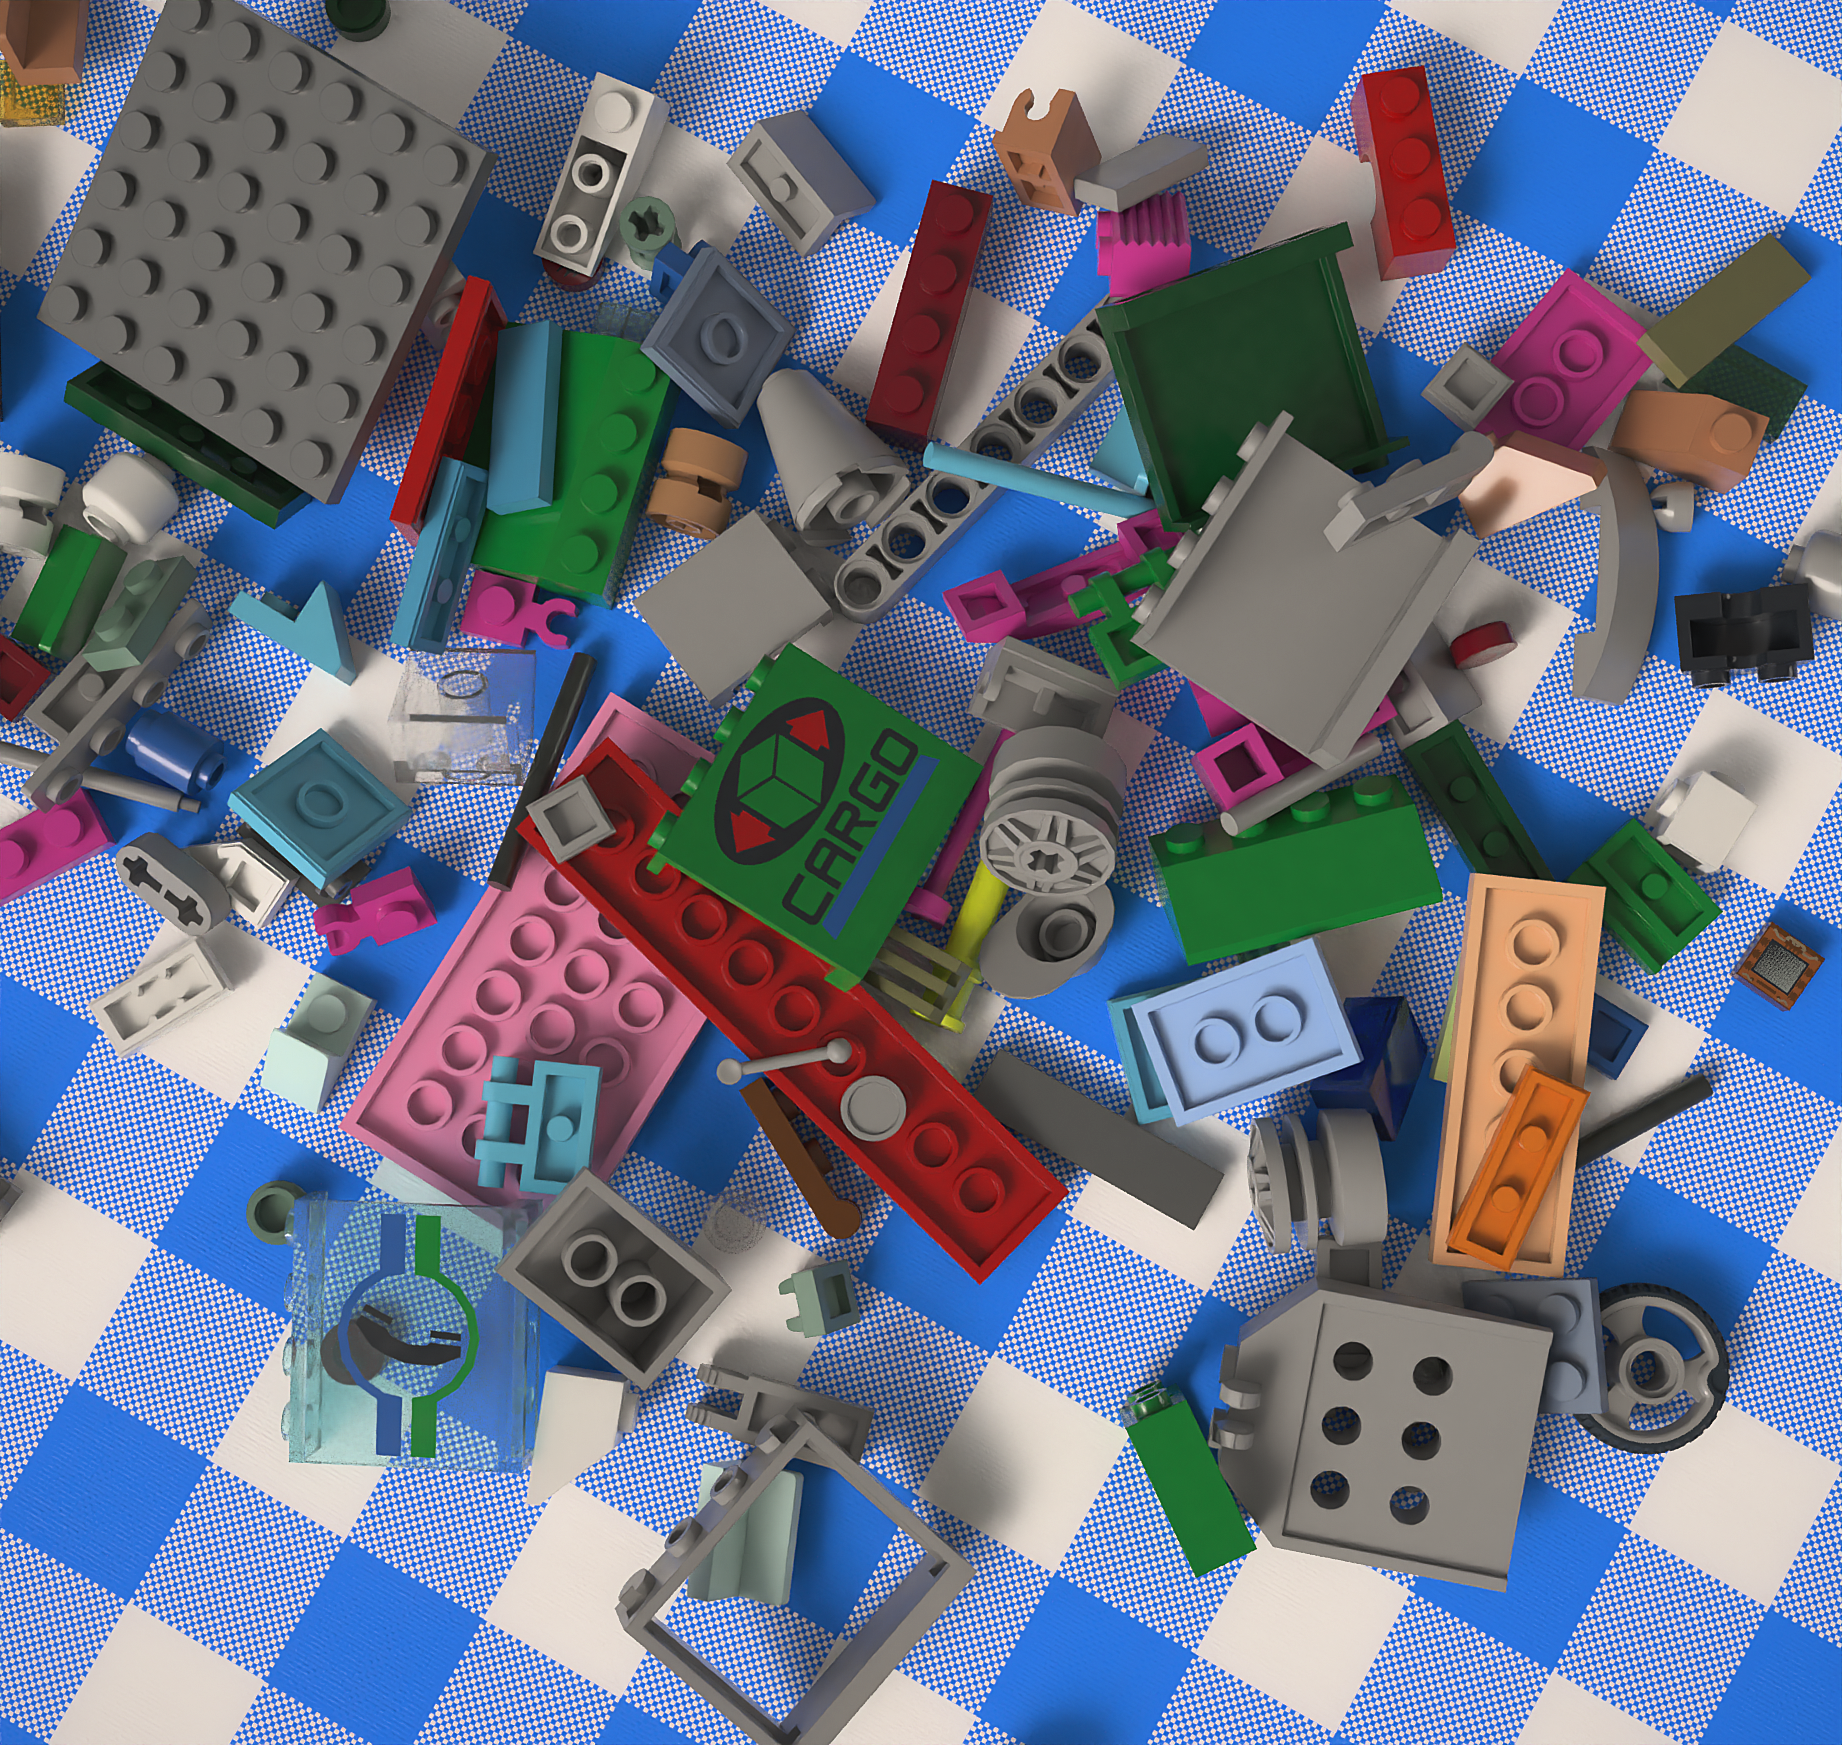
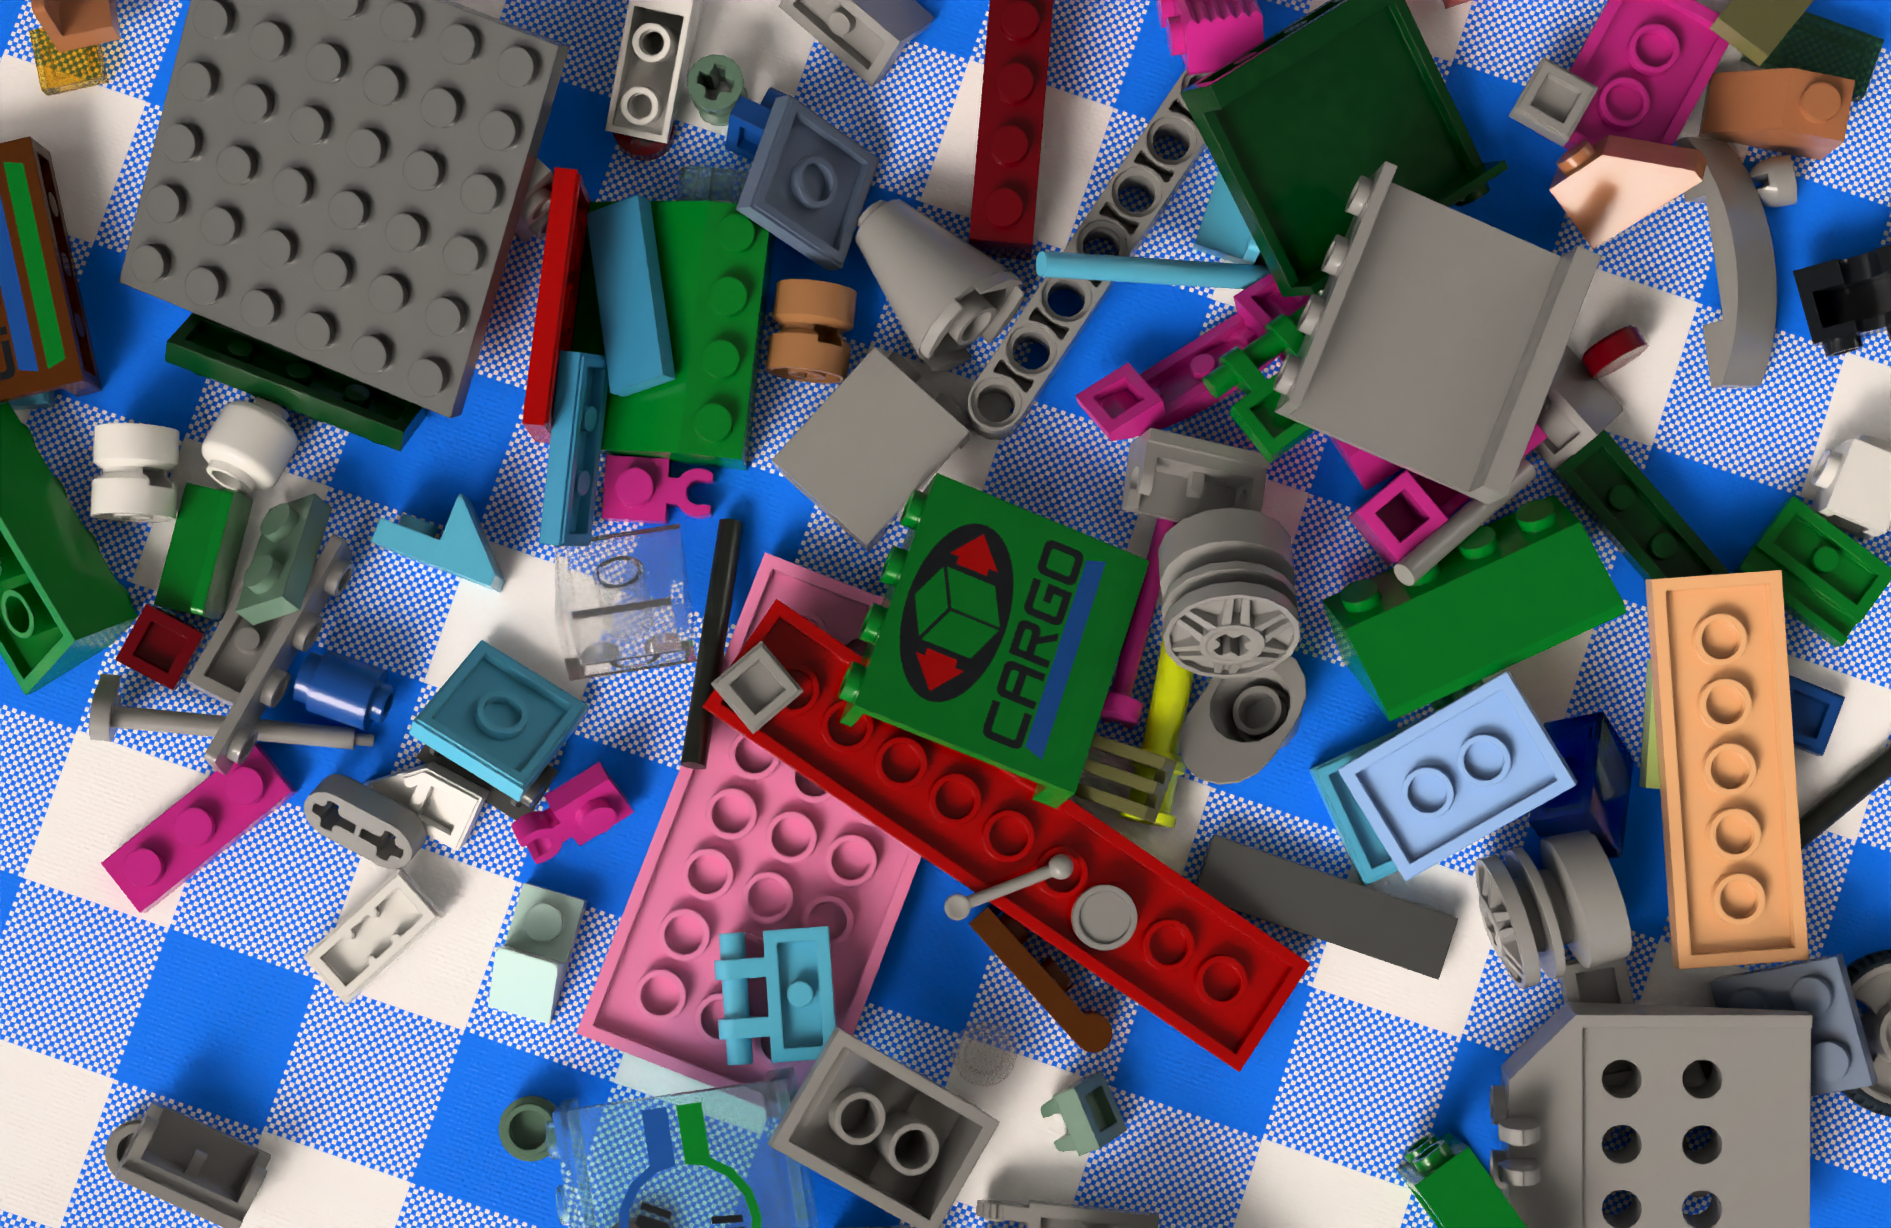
camera: 15 degrees left, 0 degrees up
(1408, 492) = (1520, 217): light grey plate -> none
(1517, 1167) = (1745, 860): orange tile -> none

